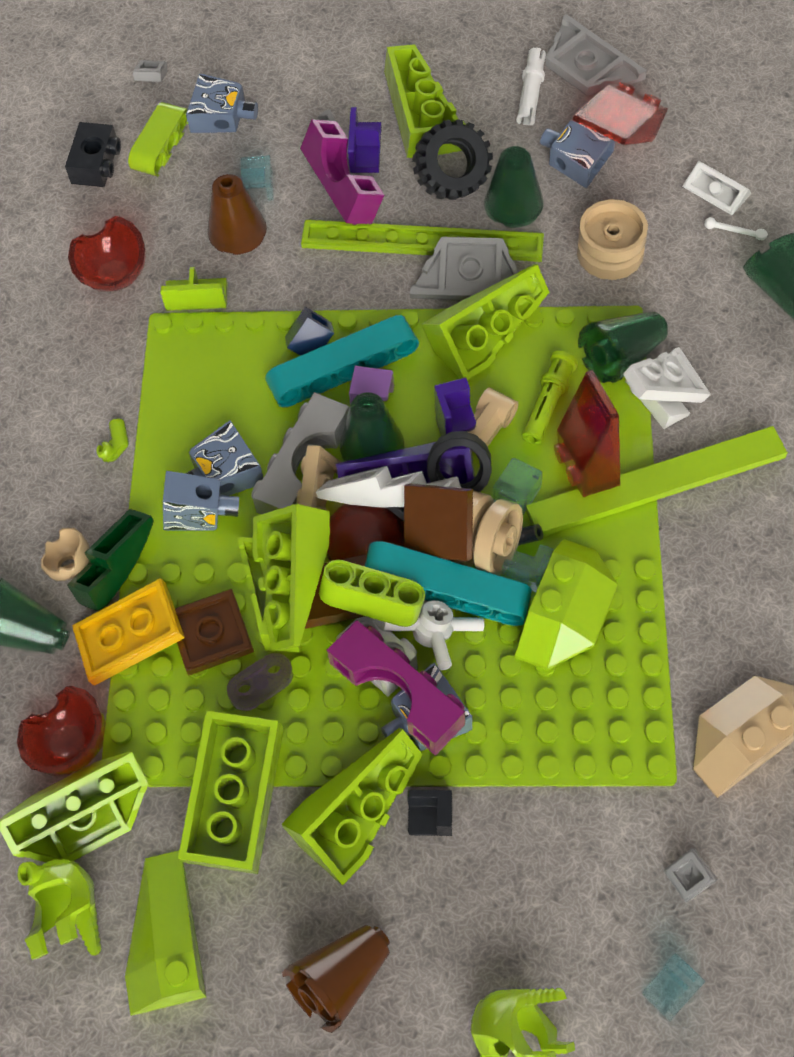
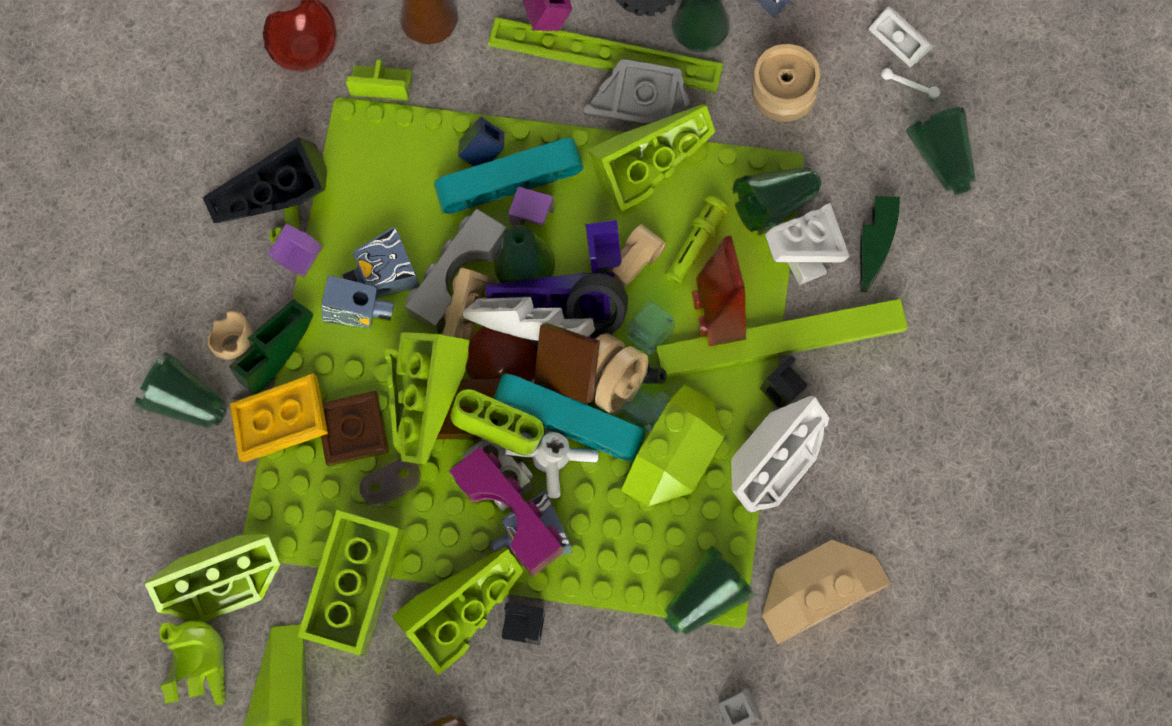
camera: 10 degrees right, 10 degrees up
(64, 736) = (211, 509): clear red cylinder -> none
(96, 397) = (272, 184): none -> black wedge
(126, 460) = (295, 250): none -> medium lavender panel
(632, 747) = (707, 593): none -> clear green cone
(667, 527) = (783, 384): none -> black panel
(680, 591) = (778, 454): none -> white wedge
(736, 372) = (877, 239): none -> dark green slope

